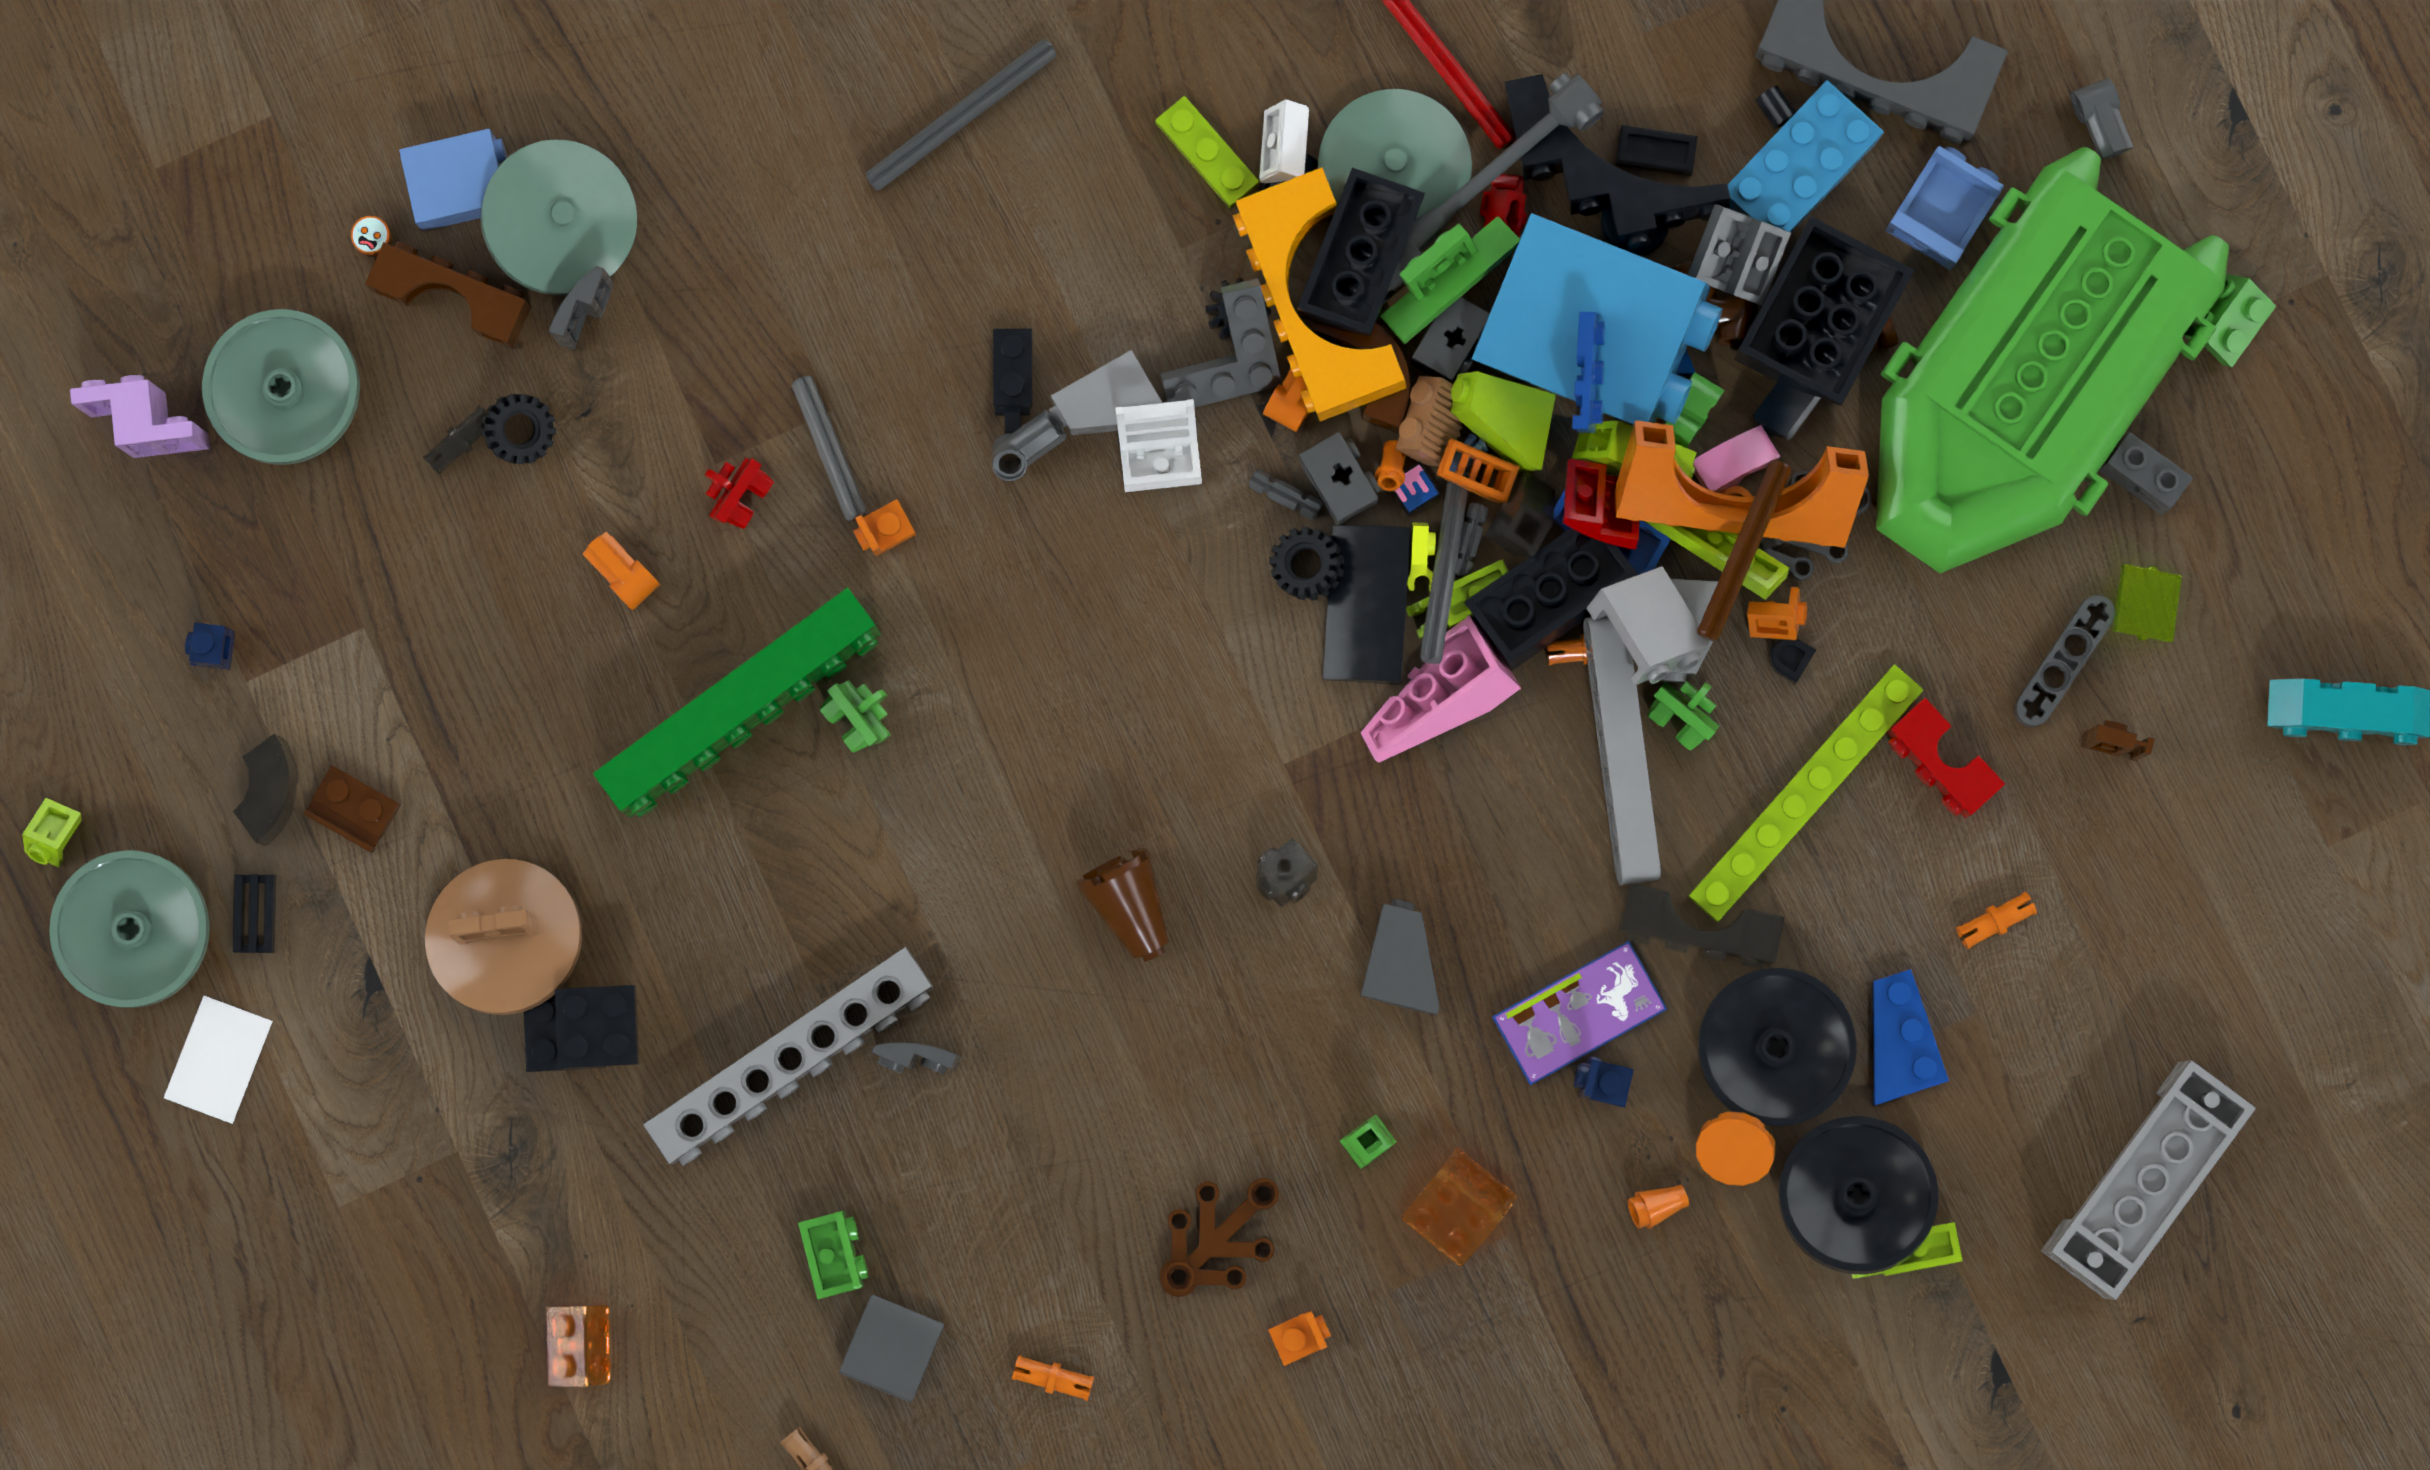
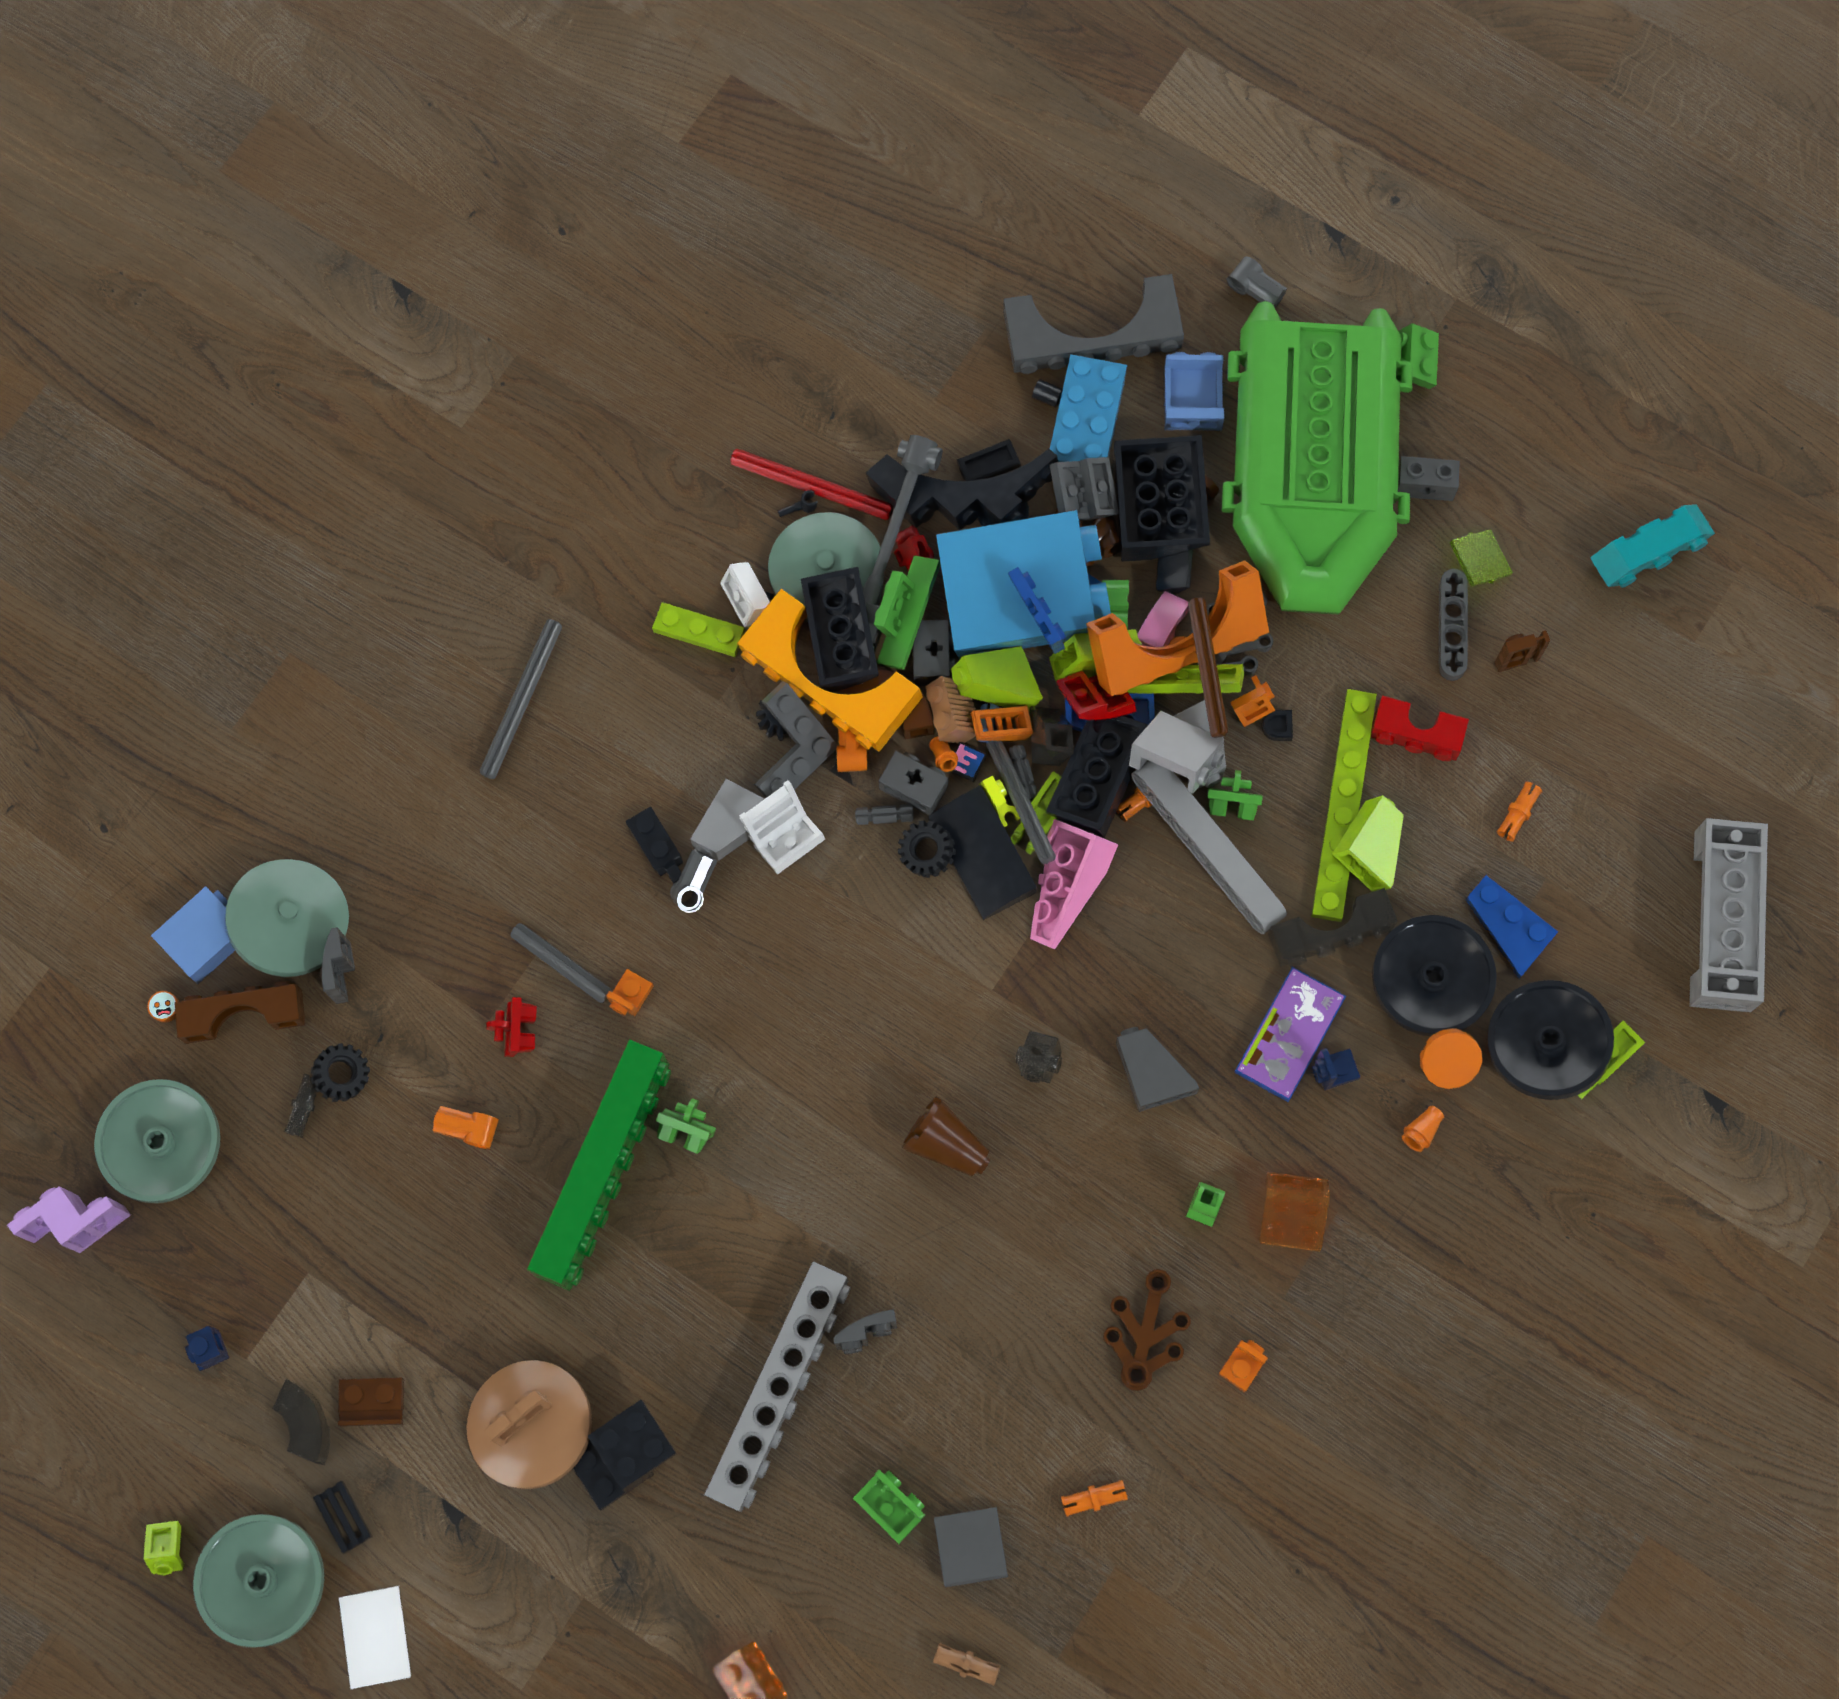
camera: 30 degrees left, 10 degrees down
(1409, 72) = (801, 505): none -> black hand
(1805, 858) = (1372, 843): none -> lime slope

